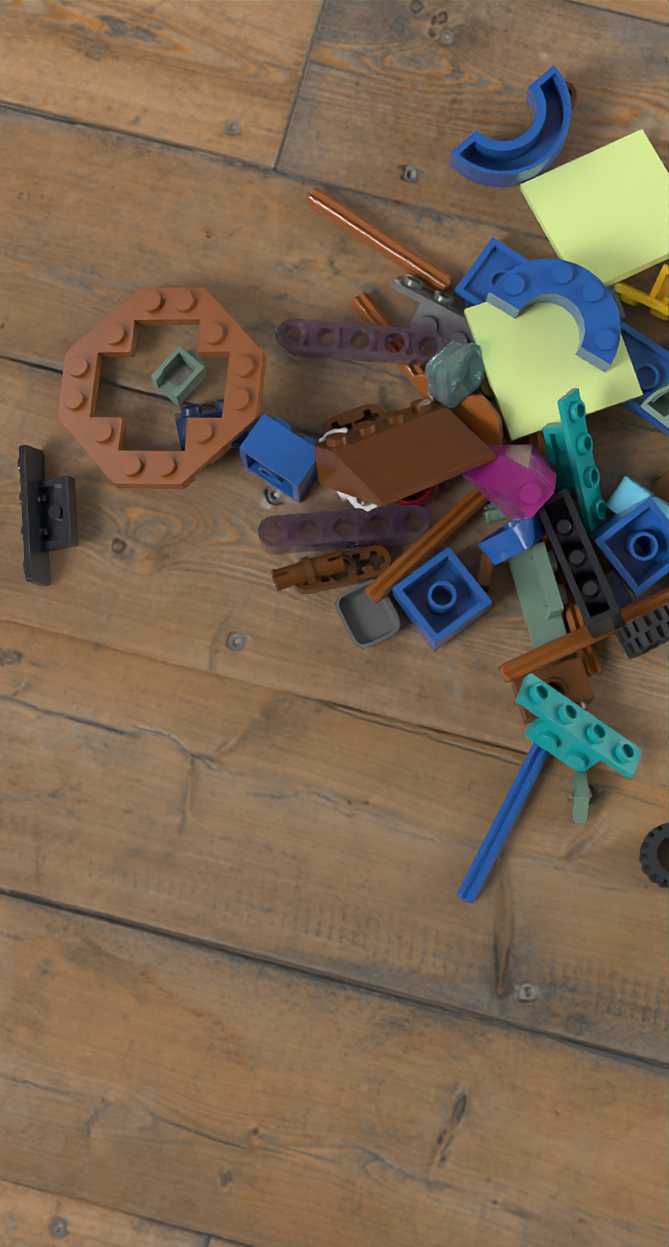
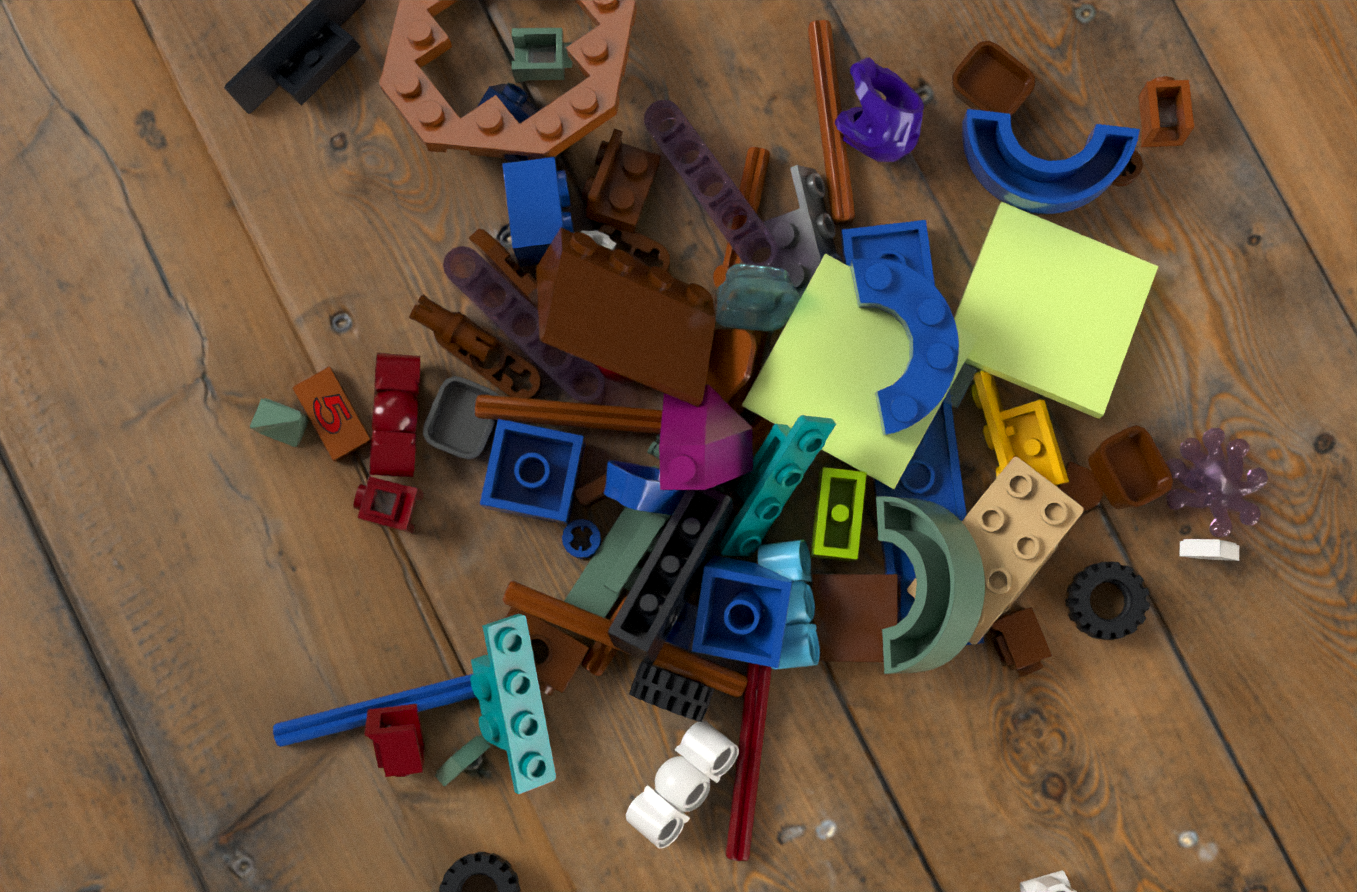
camera: 45 degrees right, 5 degrees up
(269, 729) = (279, 422): none -> sand green slope
(291, 505) = (503, 262): none -> reddish brown tile
(291, 694) = (332, 414): none -> dark orange tile
(307, 395) = (621, 183): none -> reddish brown bracket
(328, 654) = (394, 415): none -> dark red piece
(381, 706) = (387, 503): none -> dark red window
(414, 205) = (881, 127): none -> dark purple helmet
(442, 125) = (992, 80): none -> reddish brown piece
(497, 616) = (568, 538): none -> blue bush
(535, 822) = (397, 739): none -> dark red window
(552, 42) = (1165, 112): none -> dark orange window
(628, 441) = (838, 514): none -> lime brick

